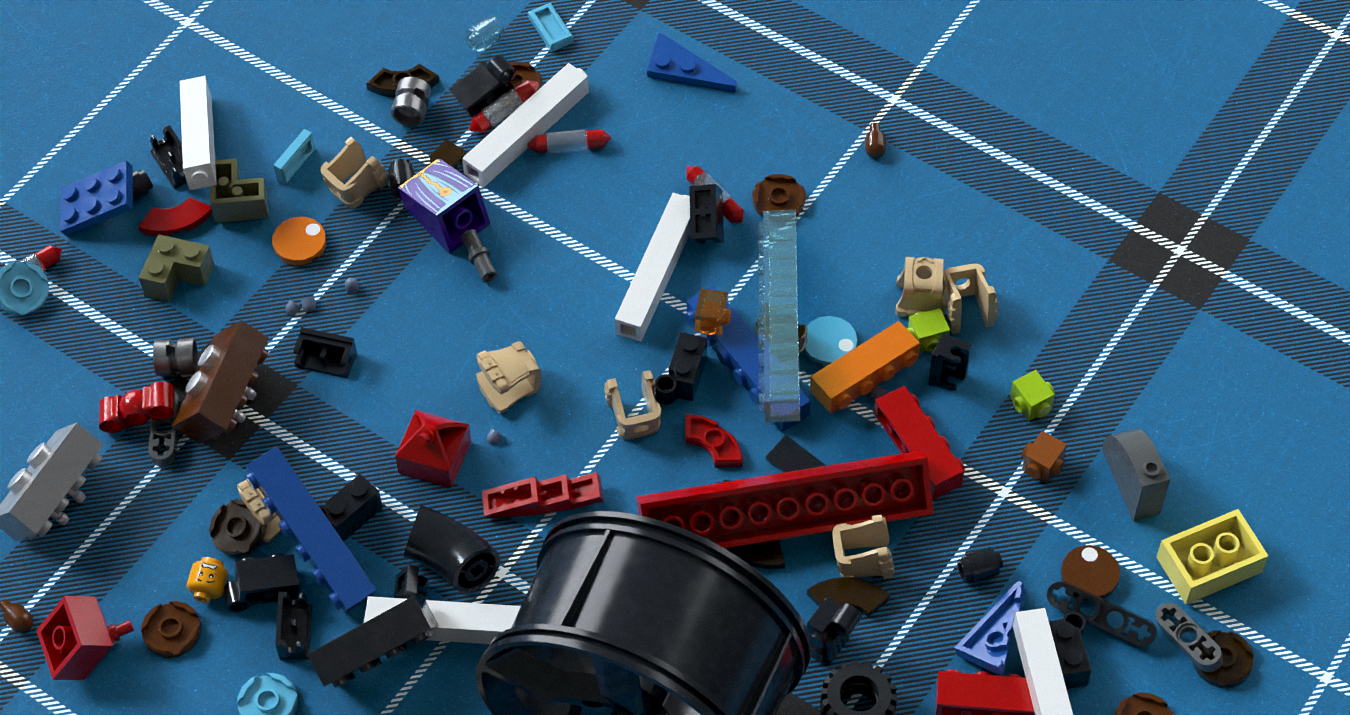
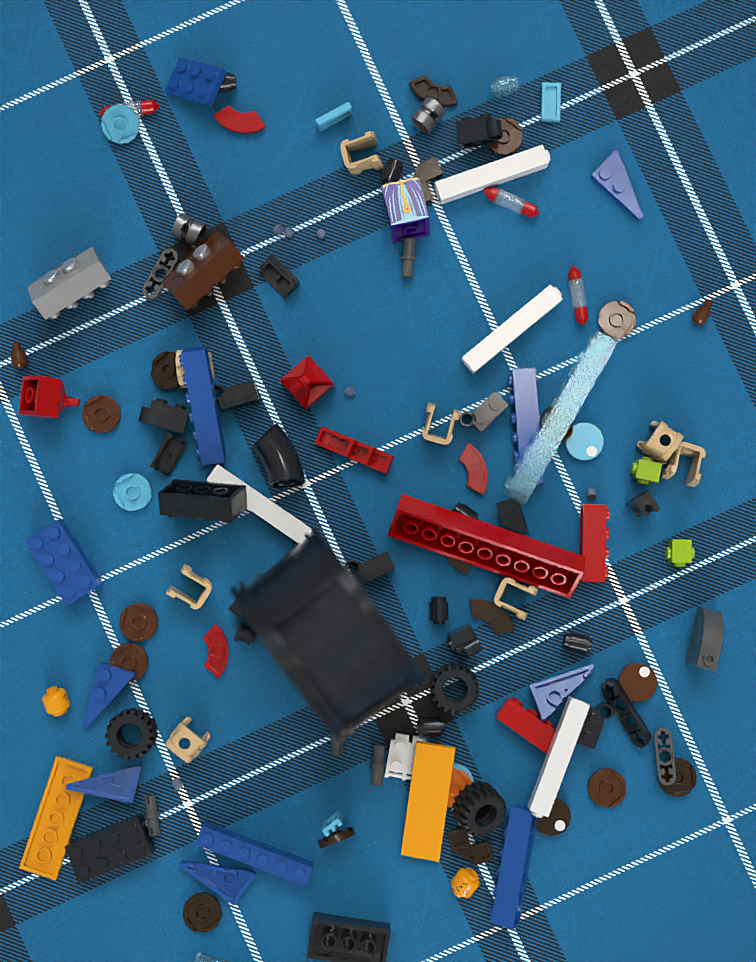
camera: 30 degrees right, 30 degrees up
(136, 407) = (148, 254): red piece -> none
(169, 156) = (258, 74): black hinge -> none
(174, 261) = (219, 156): olive brick -> none
(197, 133) = (278, 69): white brick -> none
(207, 579) = (135, 396): light orange head -> none
(237, 197) = (278, 127): olive brick -> none
(299, 240) = (306, 182): orange tile -> none
(407, 583) = (245, 465): black tile -> none
(503, 106) = (484, 153): piece -> none
(507, 375) = (377, 359): tan piece -> none
(706, 213) = (562, 312): black hinge -> none
(712, 312) = (520, 391): clear orange brick -> none
(864, 367) = (592, 476): orange brick -> none
(1044, 457) = (659, 596): dark orange brick -> none
(1212, 556) = (712, 718): light yellow brick -> none

